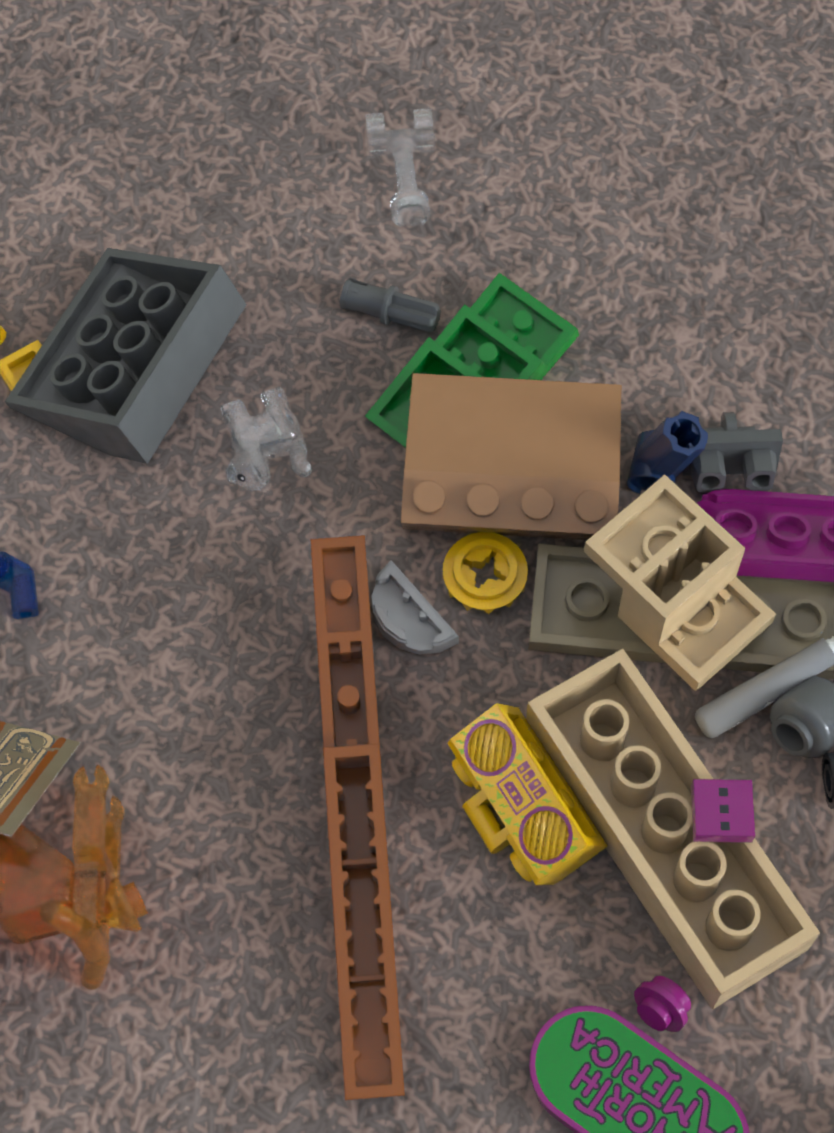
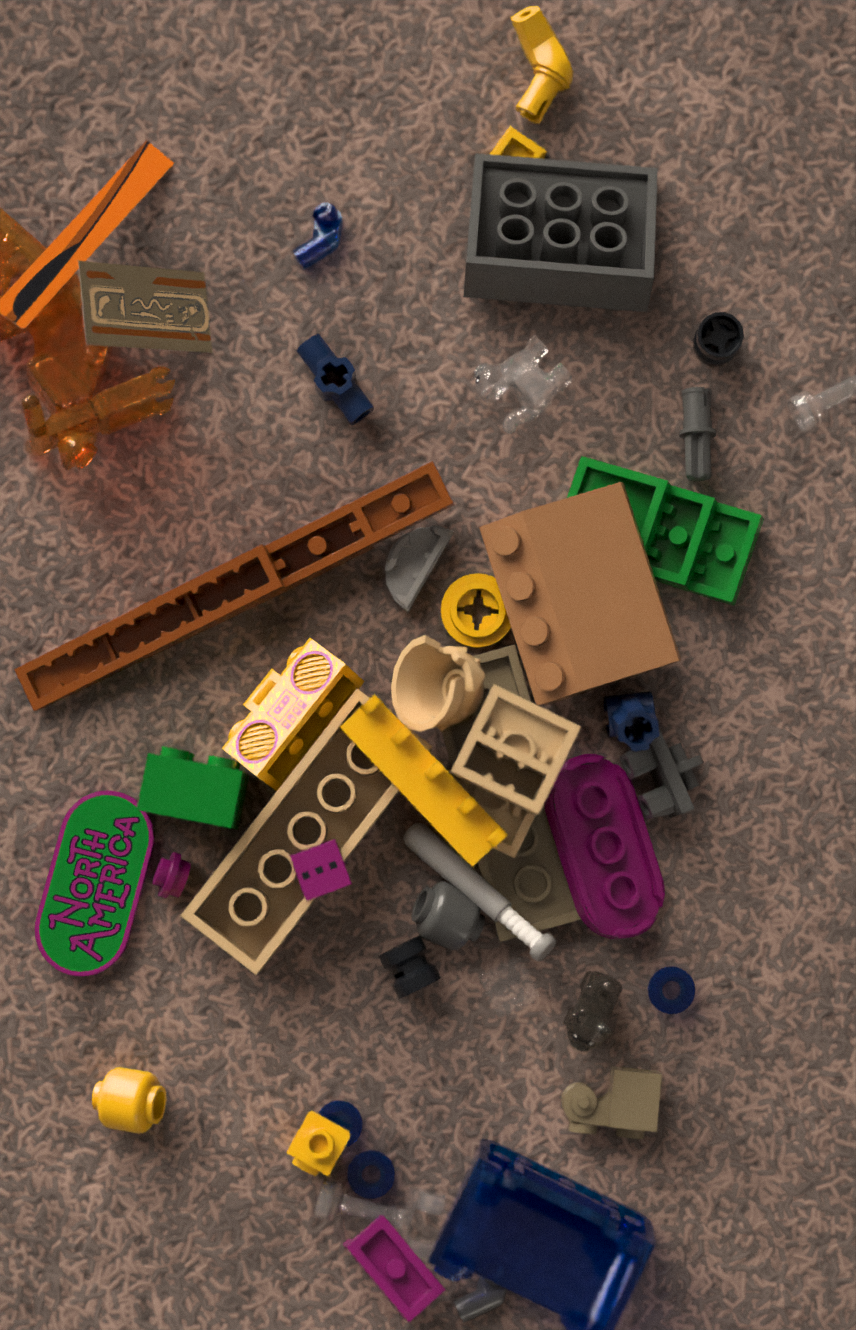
camera: 65 degrees right, 20 degrees up
(153, 624) = (347, 398): none -> dark blue axle
(304, 252) = (722, 332): none -> black wheel
(556, 620) = (435, 685): none -> tan helmet
(575, 928) = (193, 790): none -> green brick
(658, 666) = (423, 780): none -> yellow hinge

